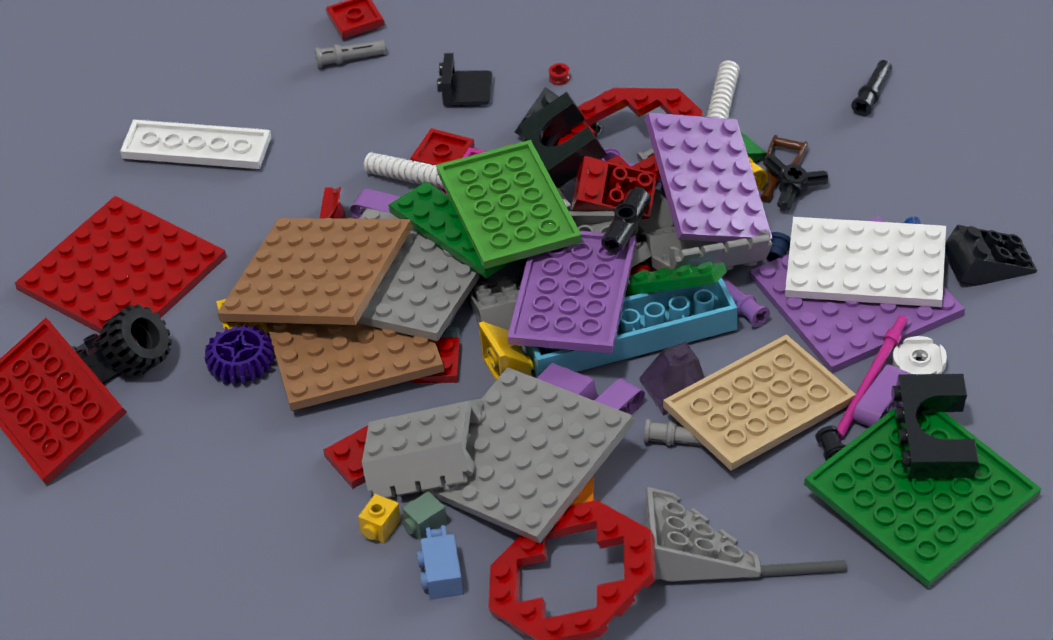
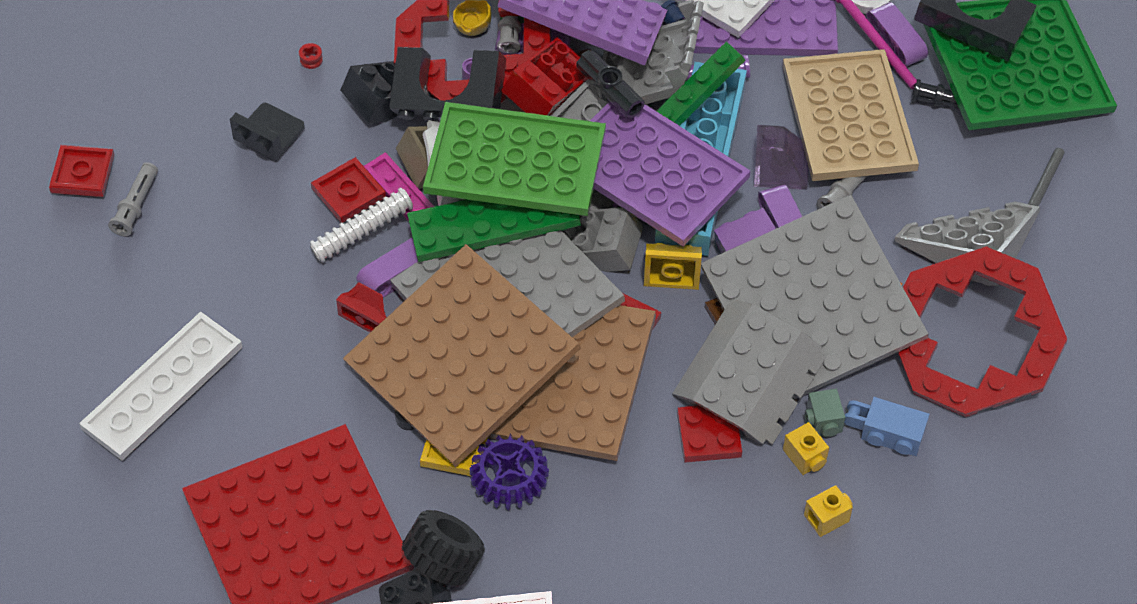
camera: 65 degrees left, 10 degrees up
(326, 557) = (828, 510): none -> yellow brick

